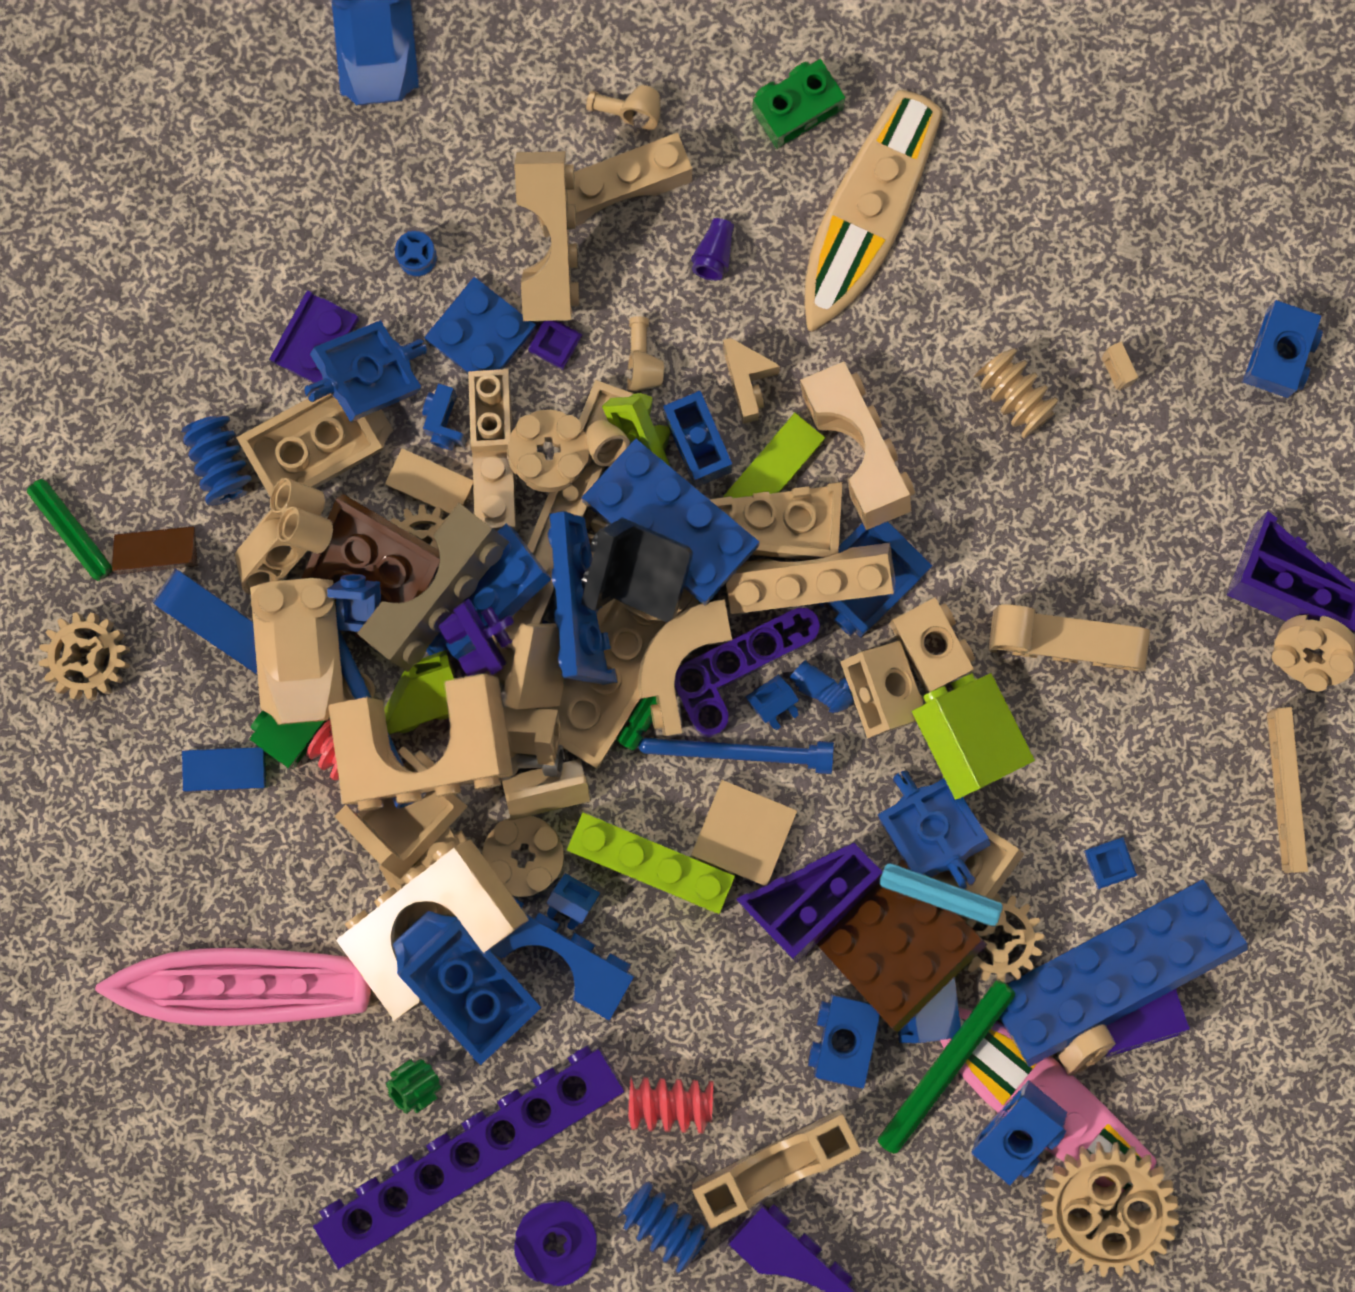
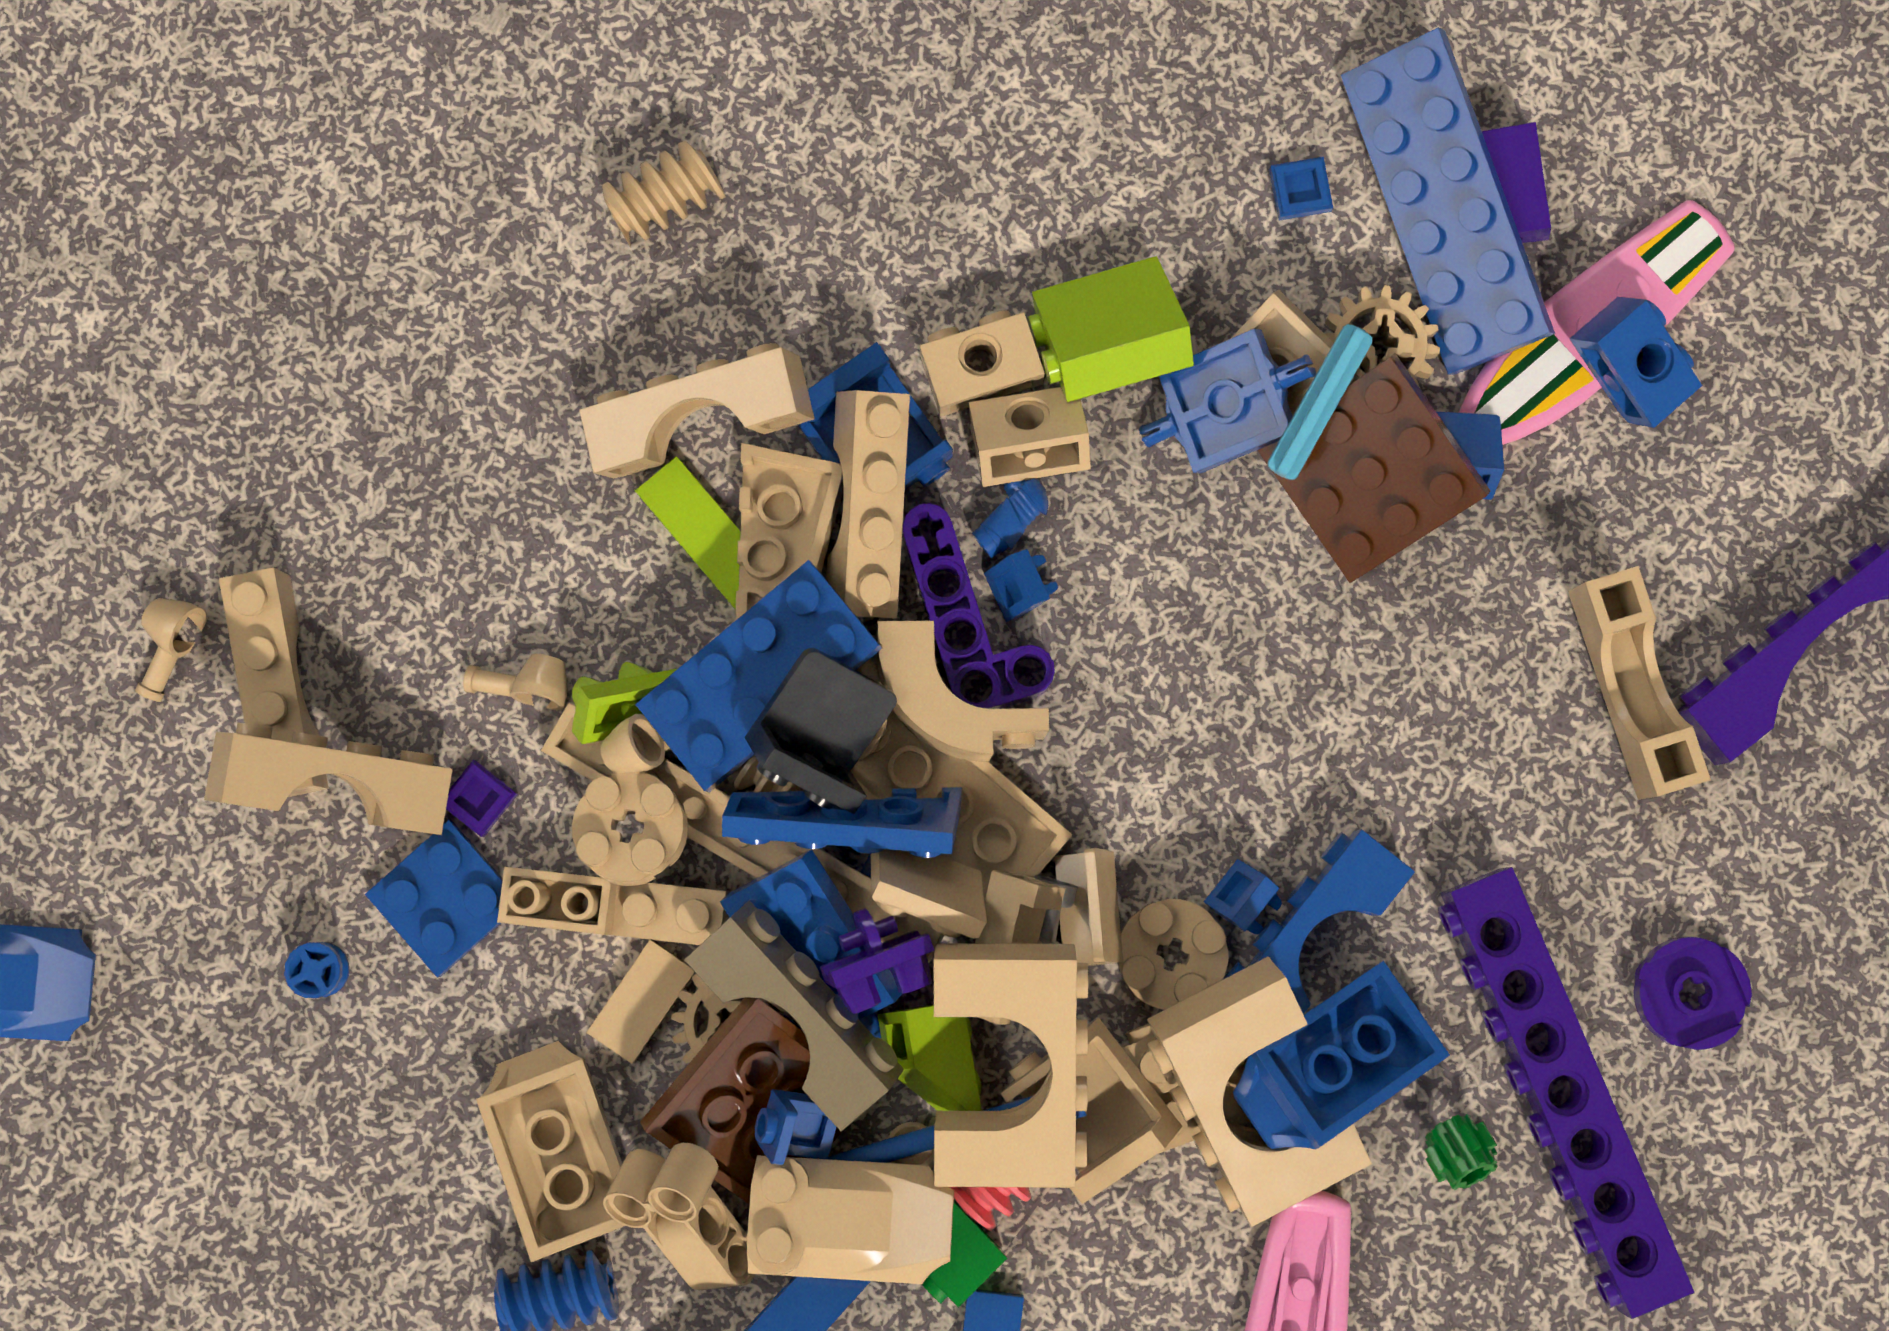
camera: 85 degrees left, 0 degrees up
(311, 325) = (409, 1132): dark purple plate -> none
(365, 370) = (470, 1065): blue plate -> none
(438, 411) = (542, 973): blue bracket -> none
(639, 721) = (1018, 769): green axle -> none
(650, 863) = (1212, 782): lime arch -> none
(663, 1226) = (1690, 844): blue piece -> none
(670, 1105) = (1534, 808): coral piece -> none
(697, 439) = (648, 624): blue brick -> none
(713, 253) = (394, 561): dark purple cone -> none
(744, 367) = (560, 547): tan slope -> none
(744, 833) = (1189, 653): tan tile -> none
(797, 102) = (208, 412): green brick -> none
(812, 900) = (1295, 576): dark purple wedge -> none
(816, 756) = (1103, 539): blue piece -> none
(847, 1066) = (1514, 562): blue brick -> none
(869, 206) = (371, 344): tan piece -> none
(946, 1066) = (1536, 441): green axle -> none
(1068, 639) = (1002, 187): tan beam -> none
(1086, 1050) = (1543, 256): tan beam -> none
(1119, 366) = (651, 55): tan tile -> none
(1141, 1229) = (1747, 265): tan gear -> none

